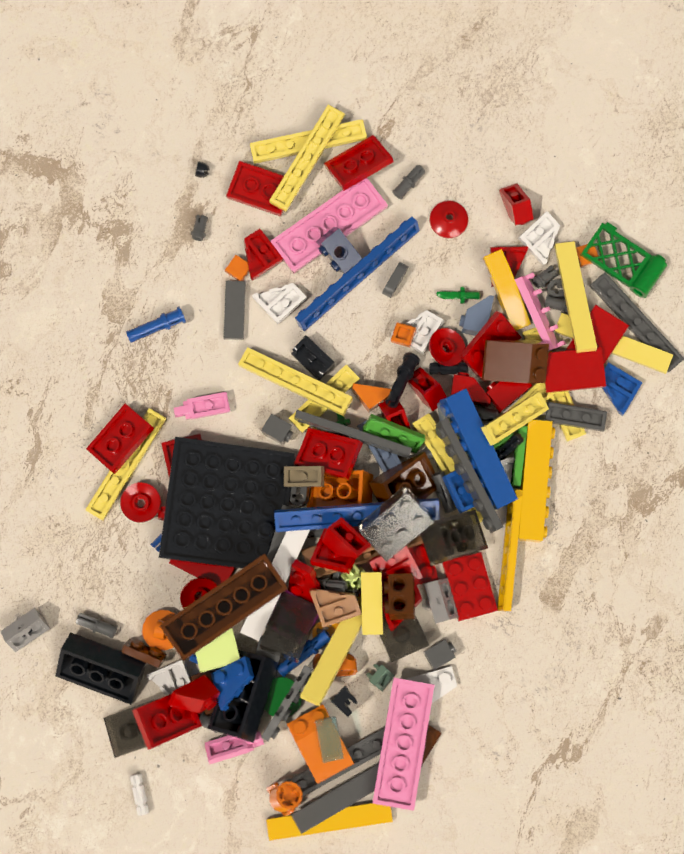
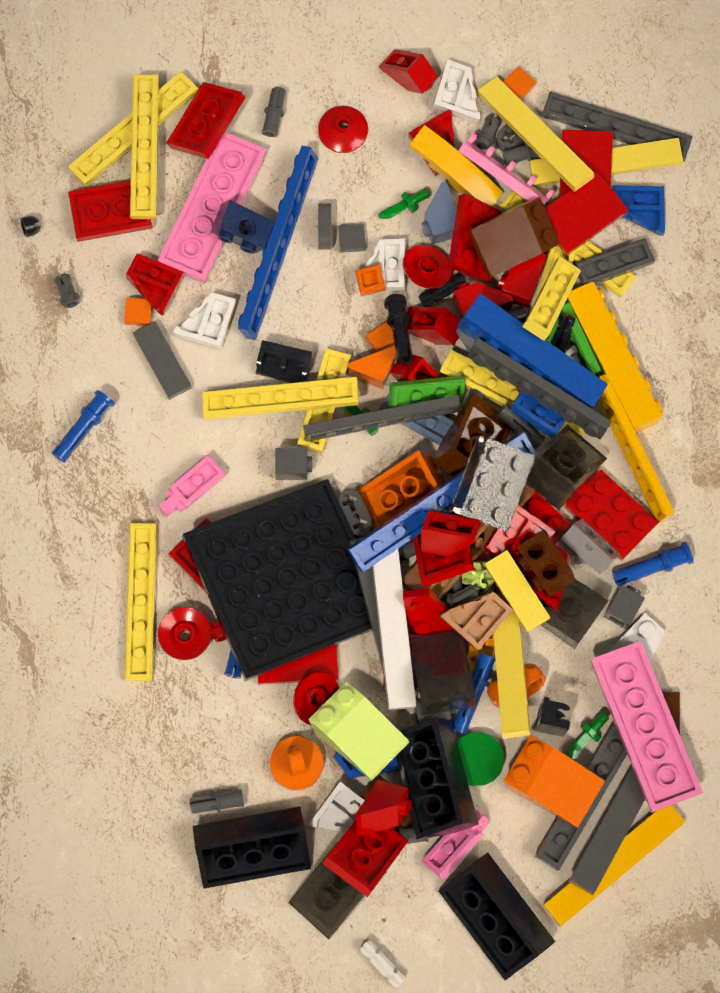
camera: 30 degrees left, 5 degrees down
(24, 629) = (136, 854): light grey piece -> none
(120, 438) = (118, 575): red plate -> none
(150, 655) = (281, 800): reddish brown plate -> none
(223, 607) = (356, 687): reddish brown brick -> none
(231, 680) = (413, 767): blue wing -> none
(231, 809) = (496, 916): none -> black slope
(283, 711) = (490, 747): dark grey wing -> none
(284, 797) = (550, 863): orange piece -> none
(303, 476) = (355, 495): dark tan plate -> none
(329, 450) = (367, 456): red plate -> none
(329, 739) = (562, 768): clear light blue tile -> none
(366, 724) = (590, 732): none -> green piece
(381, 677) = (575, 669): sand green tile -> none
(387, 378) = (381, 337): none -> orange tile
(409, 298) = (351, 238): none -> dark grey tile
(485, 639) = (663, 561): none -> blue pin
(646, 274) = (596, 64): green piece -> none

